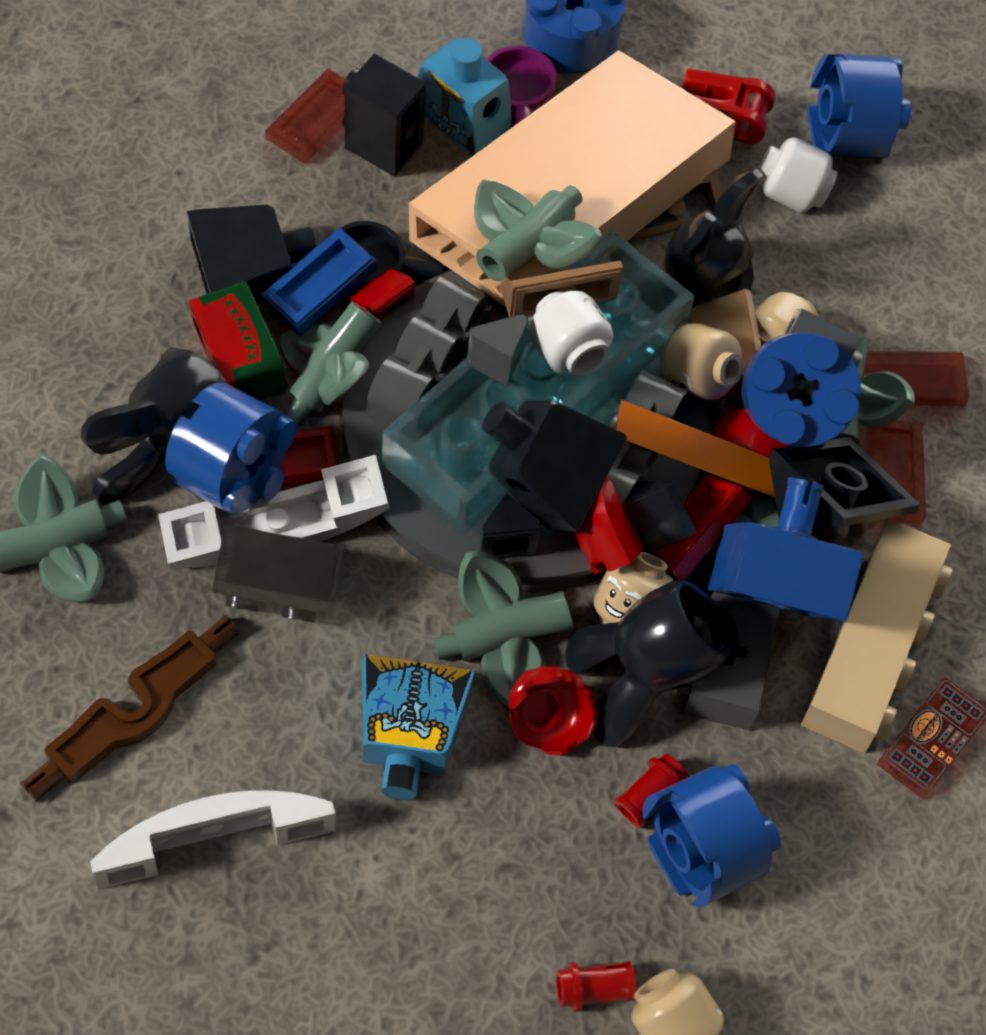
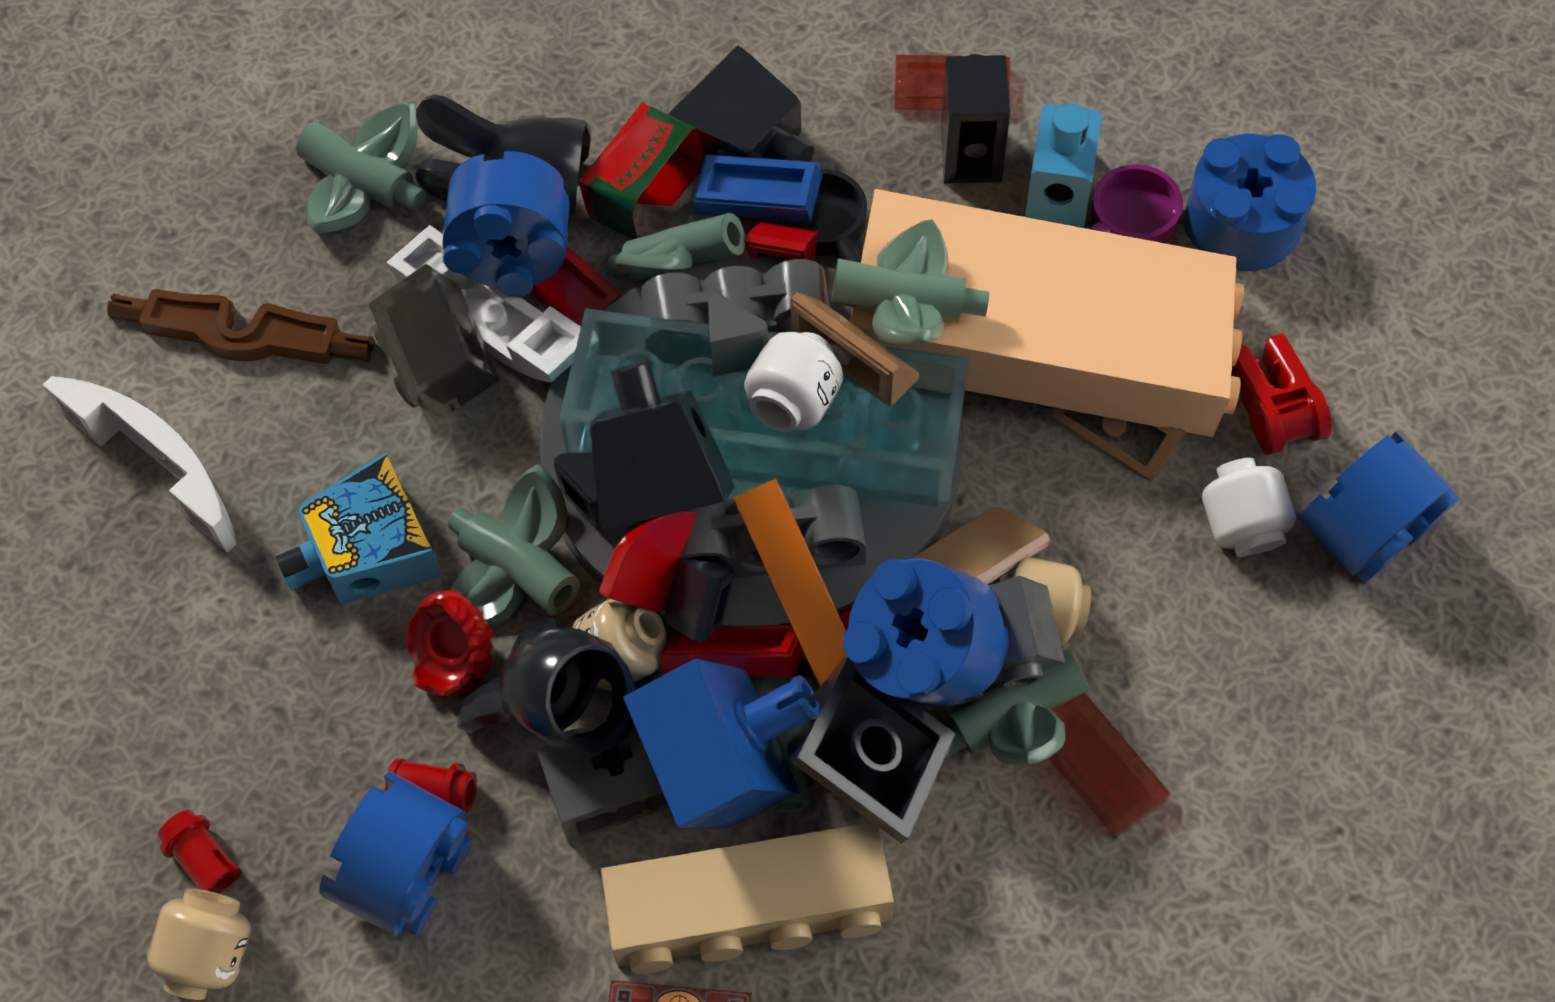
camera: 65 degrees right, 0 degrees up
(702, 361) = (907, 526): tan head -> none
(714, 244) = (1066, 472): black piece -> none
(901, 454) = (974, 812): clear red tile -> none

